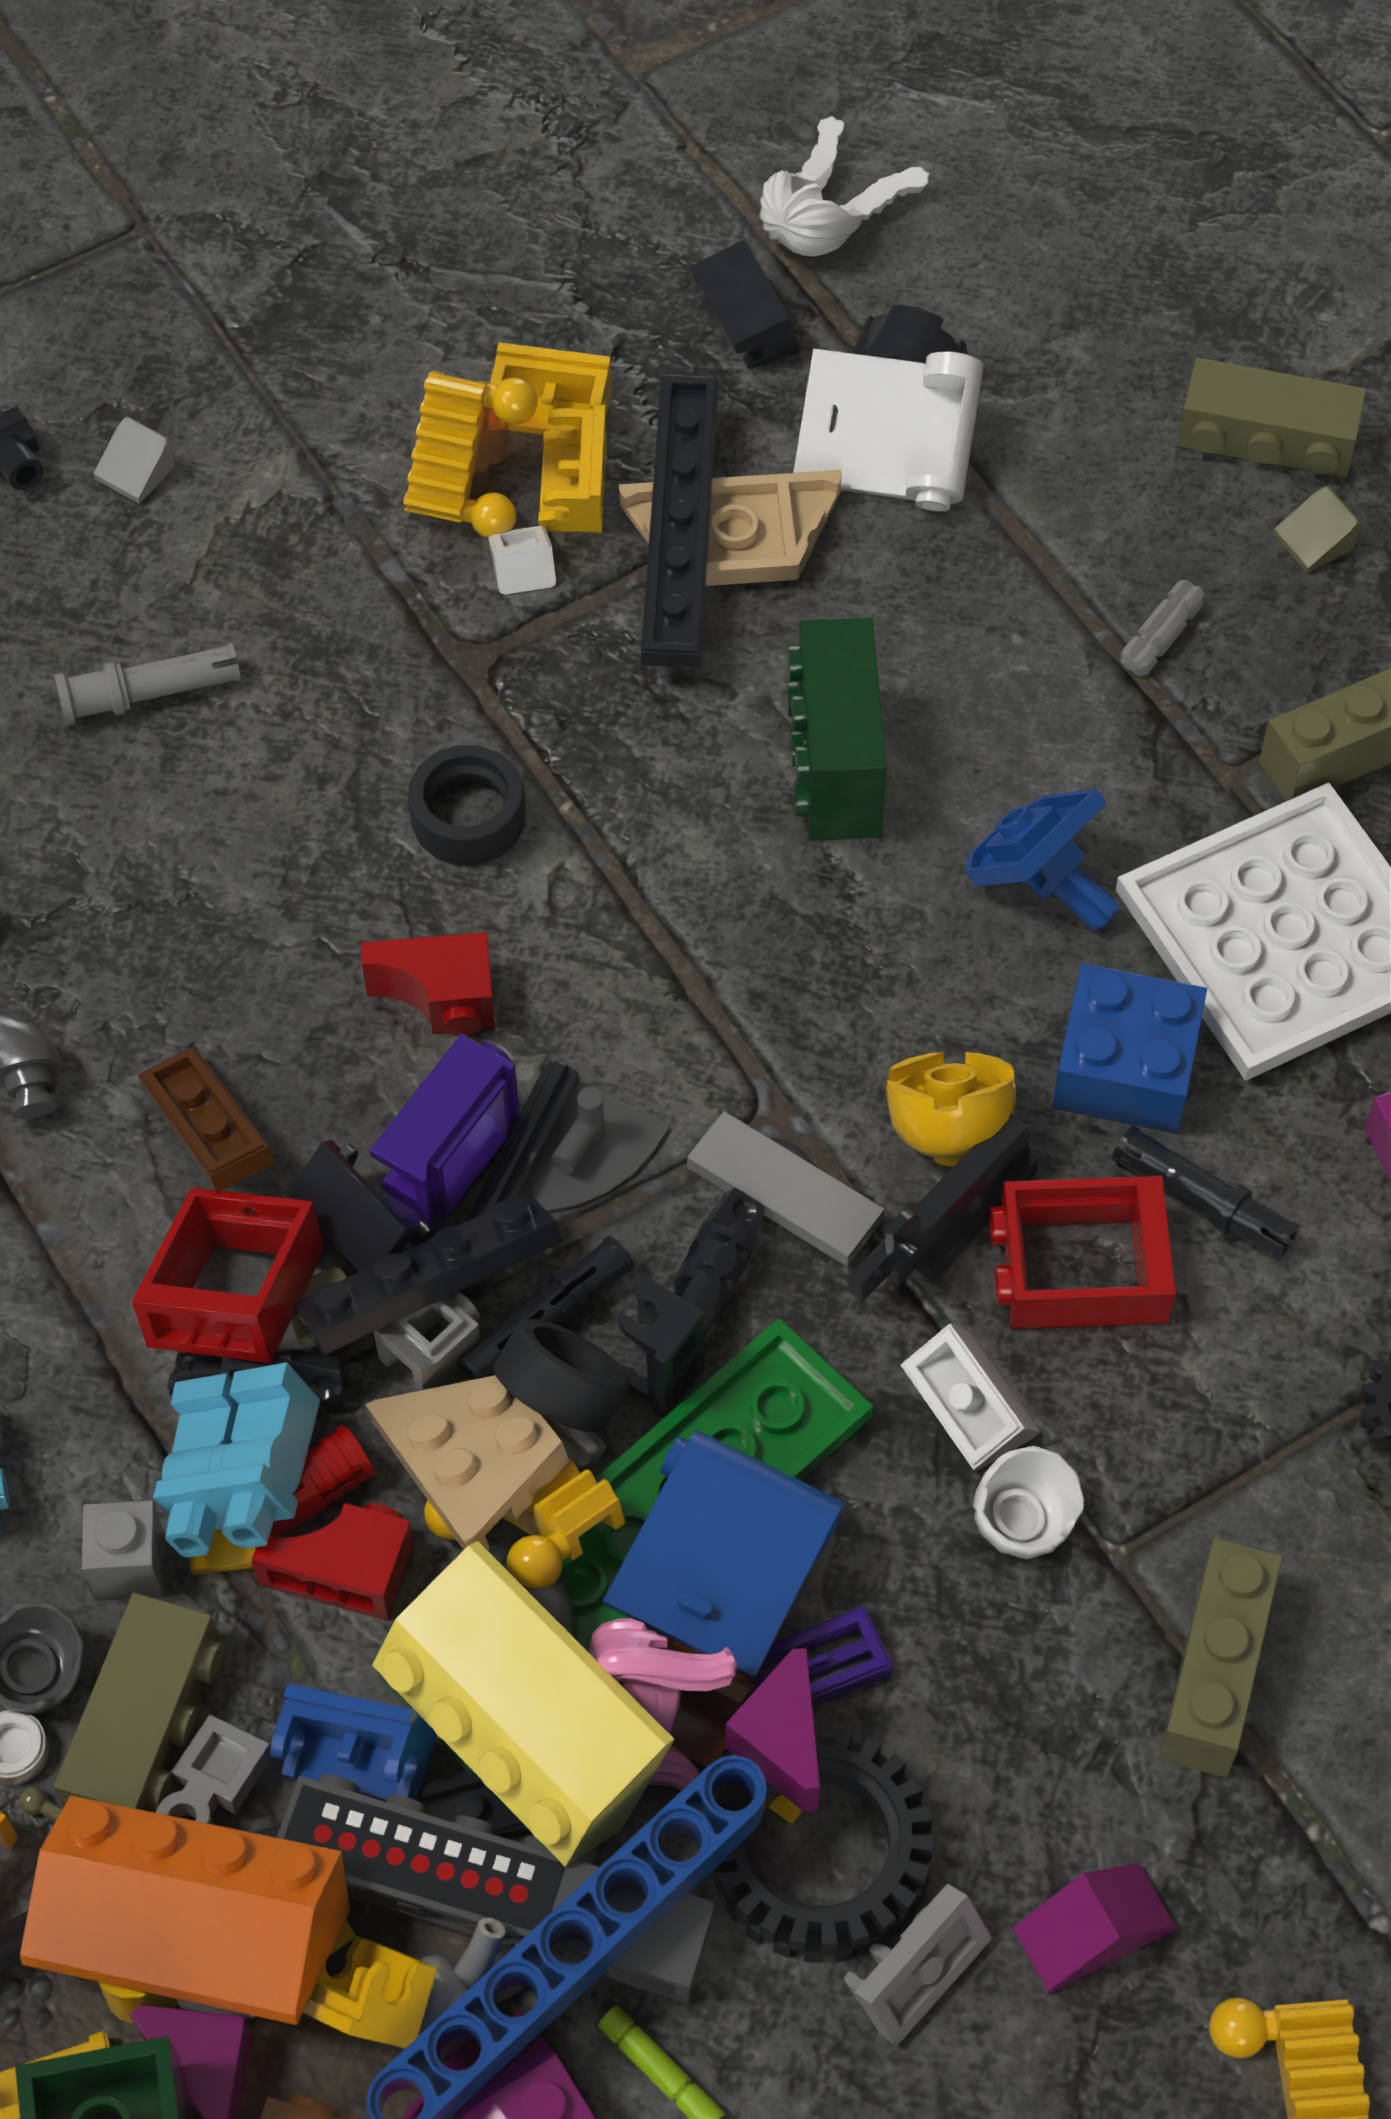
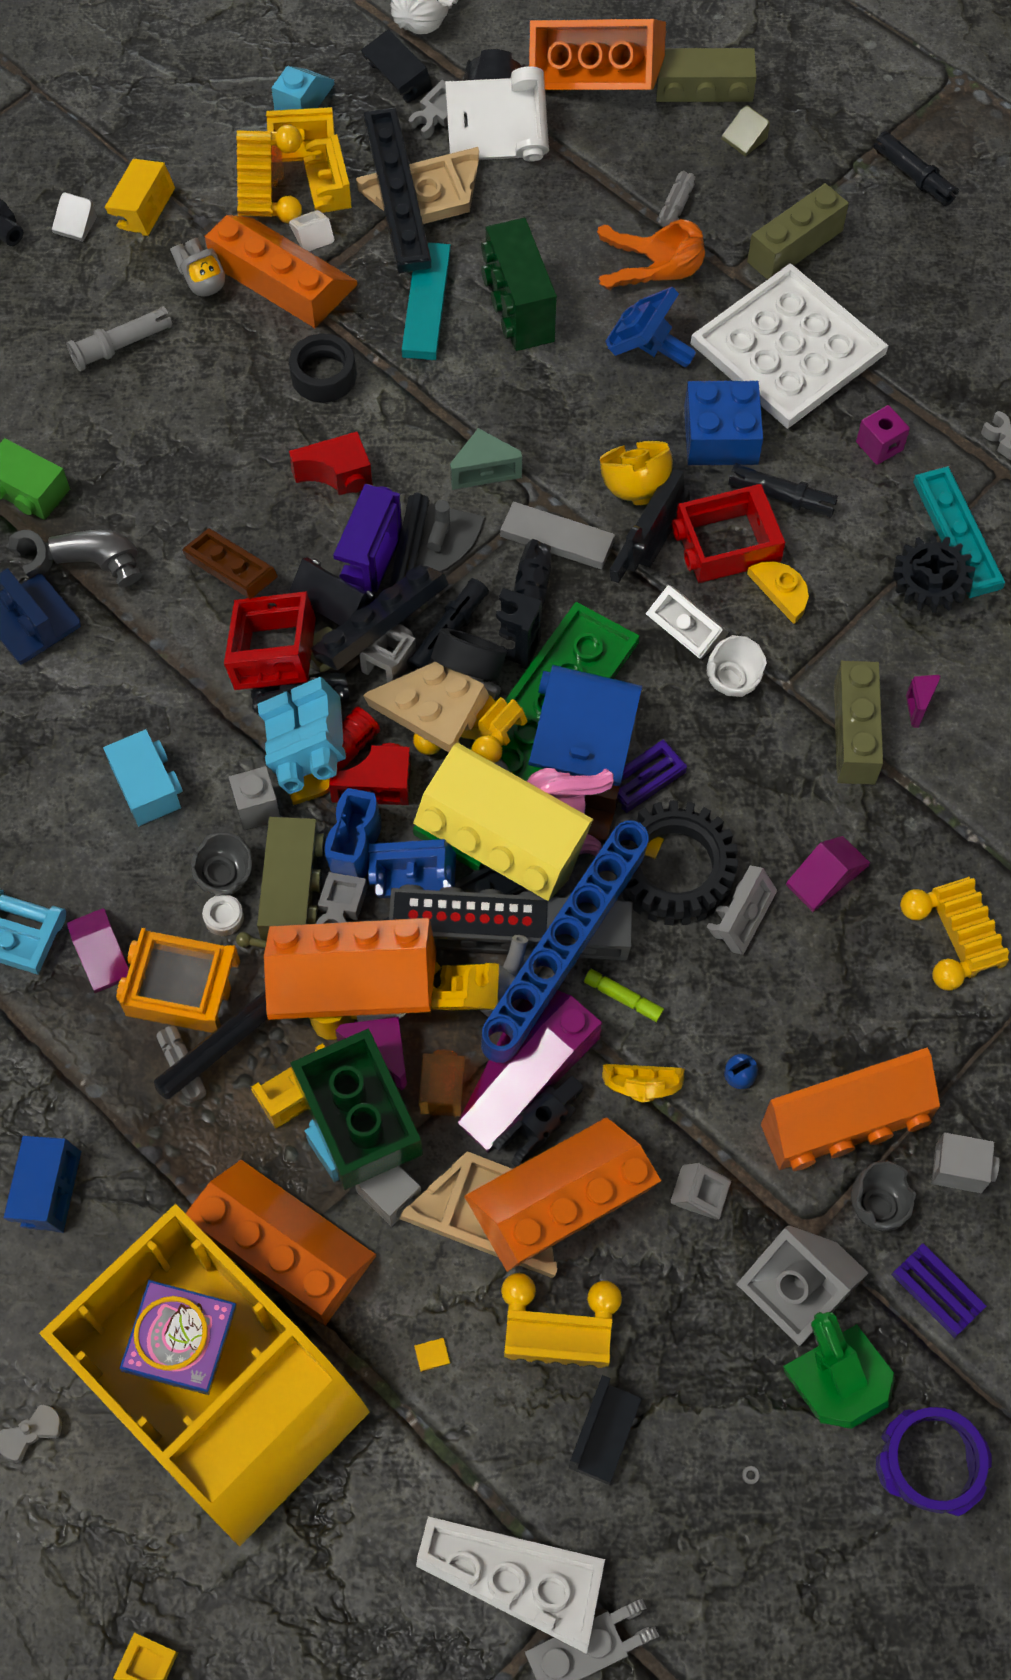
camera: 15 degrees left, 5 degrees up
(253, 446) = (141, 195): none -> yellow hinge
(279, 1643) = (355, 829): none -> blue brick
(311, 589) = (200, 267): none -> light grey piece
(445, 614) = (278, 268): none -> orange slope
(571, 314) = (300, 89): none -> medium azure slope
(677, 729) = (426, 306): none -> teal tile
(692, 1029) = (485, 461): none -> sand green slope
(779, 1733) = (645, 805): magenta slope -> none
(786, 392) = (434, 111): none -> light grey plate
(1088, 349) = (598, 53): none -> orange slope
(1131, 719) = (673, 249): none -> orange hair
(1158, 1371) = (782, 586): none -> yellow plate
(1349, 1634) = (919, 697): none -> magenta slope

